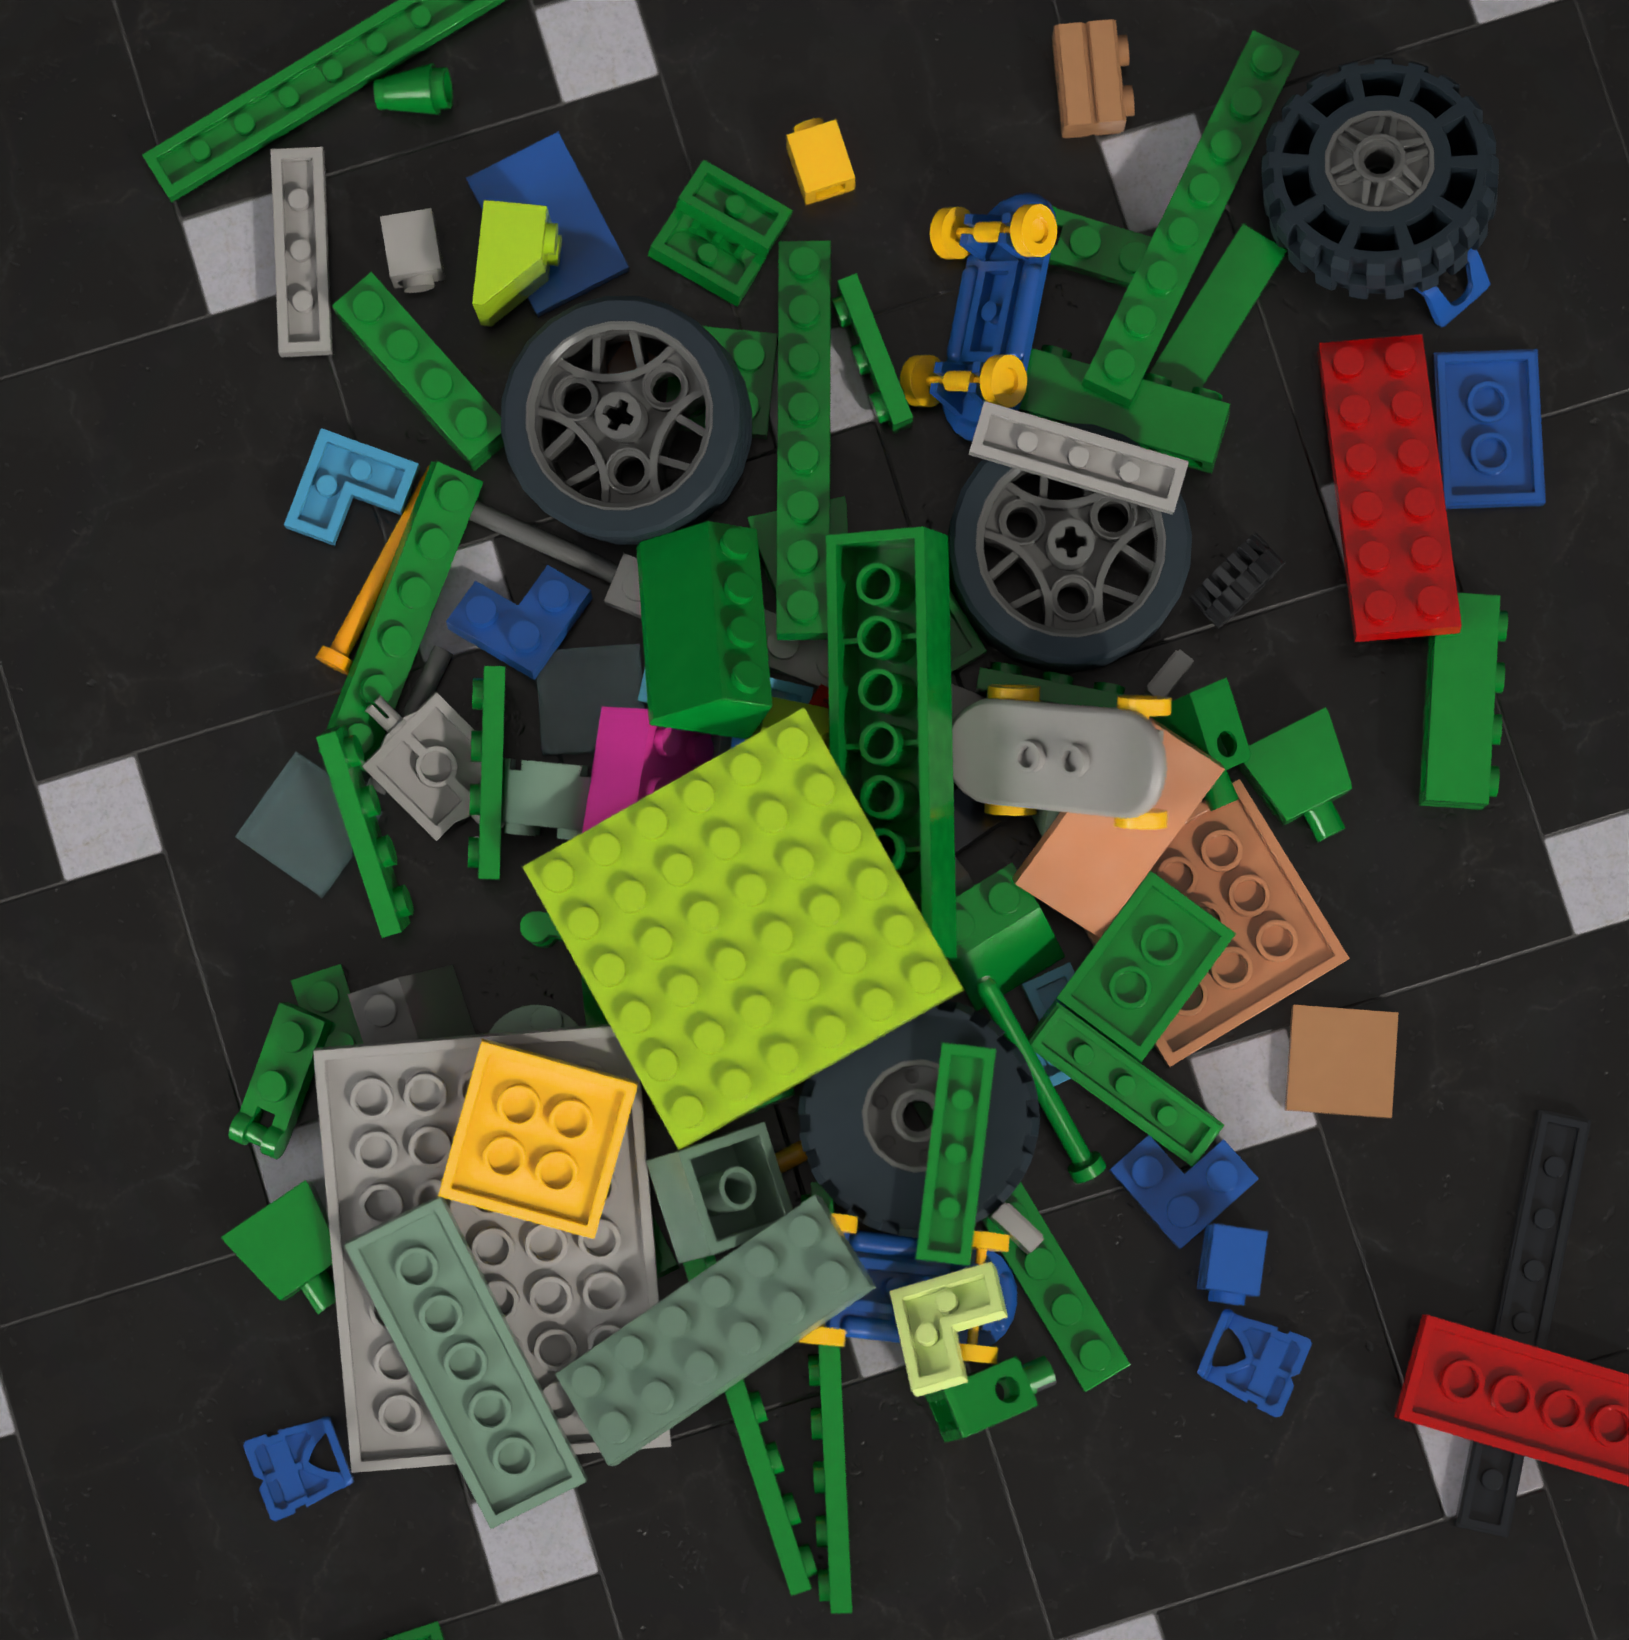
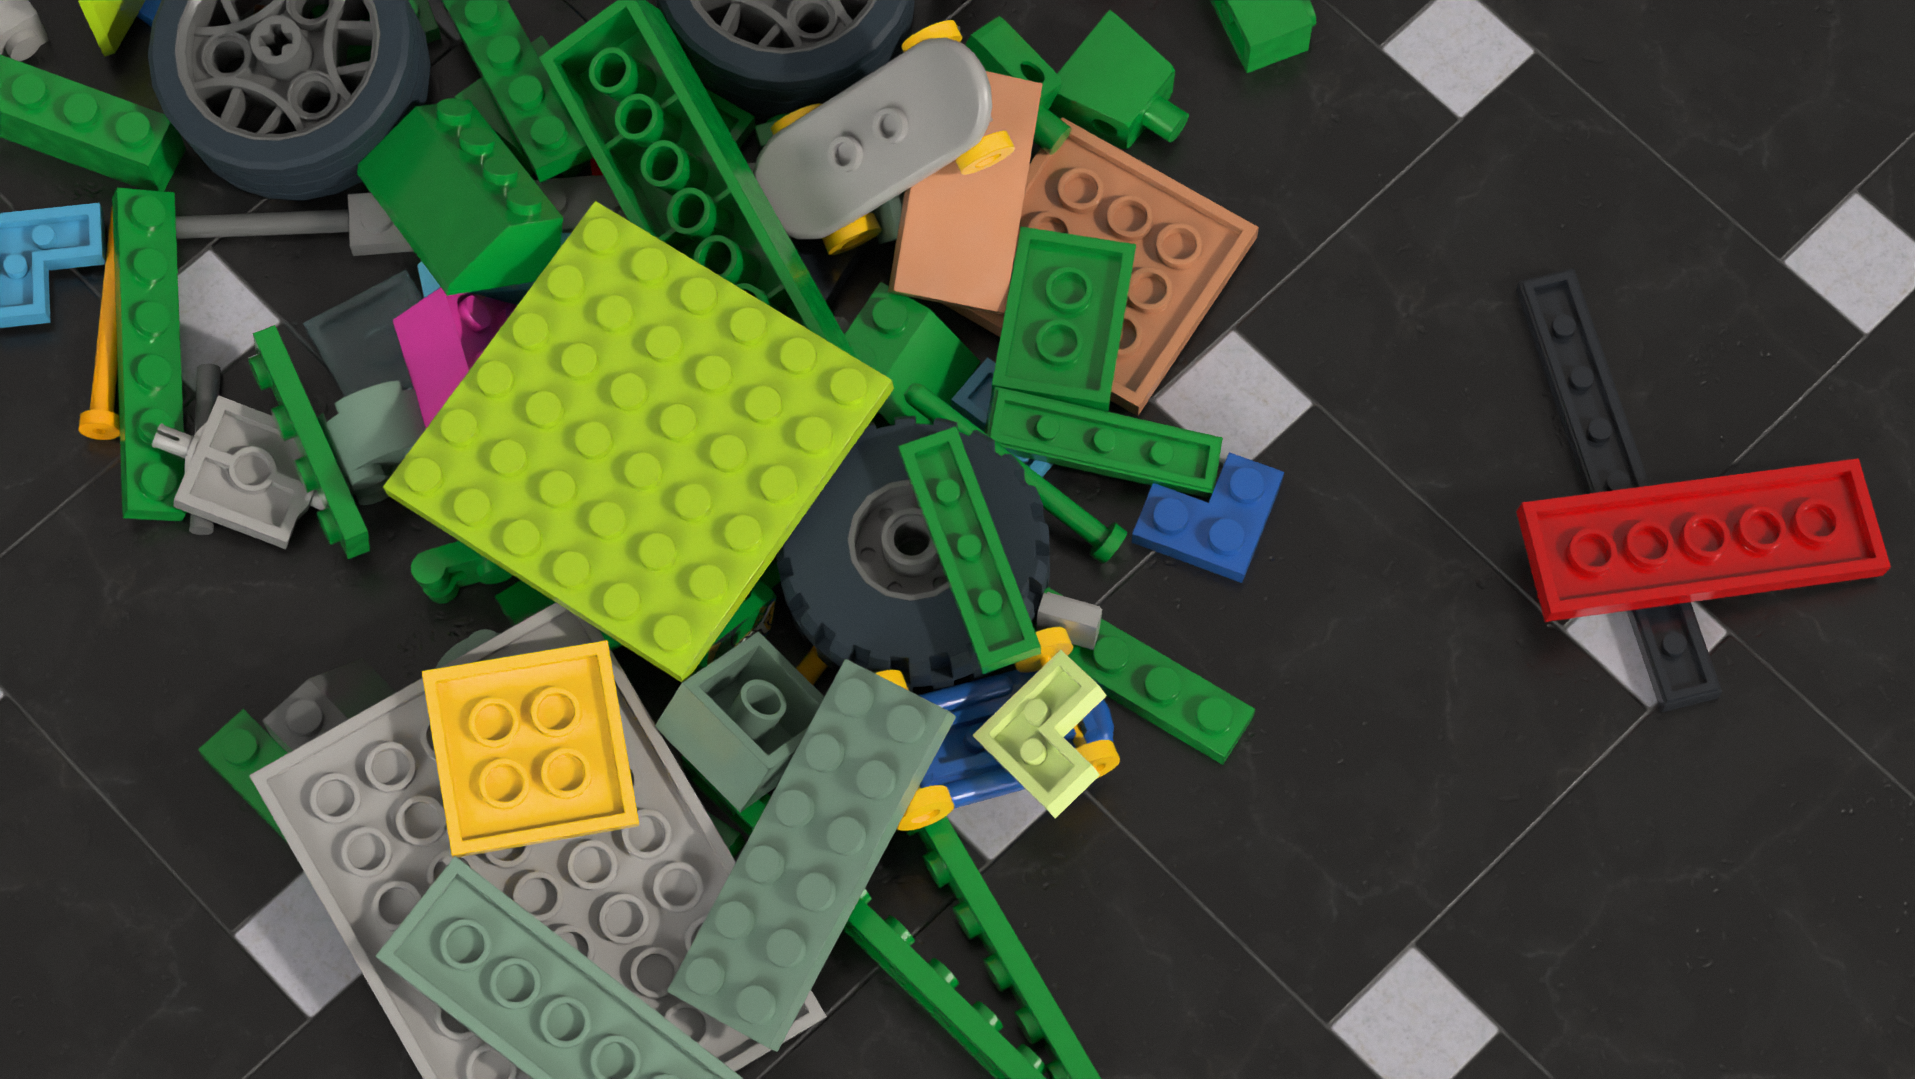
camera: 25 degrees left, 15 degrees down
(280, 1079) = (233, 850): green plate -> none
(289, 1247) = (321, 1012): green torso -> none
(300, 826) = (147, 594): clear light blue tile -> none
(359, 809) = (190, 537): green plate -> none
(526, 632) = (289, 300): blue plate -> none
(974, 1404) = (1125, 805): green torso -> none
(1231, 1263) = (1301, 550): blue brick -> none
(1268, 1364) = (1393, 645): blue piece -> none
(1341, 1061) = (1303, 330): medium nougat tile -> none

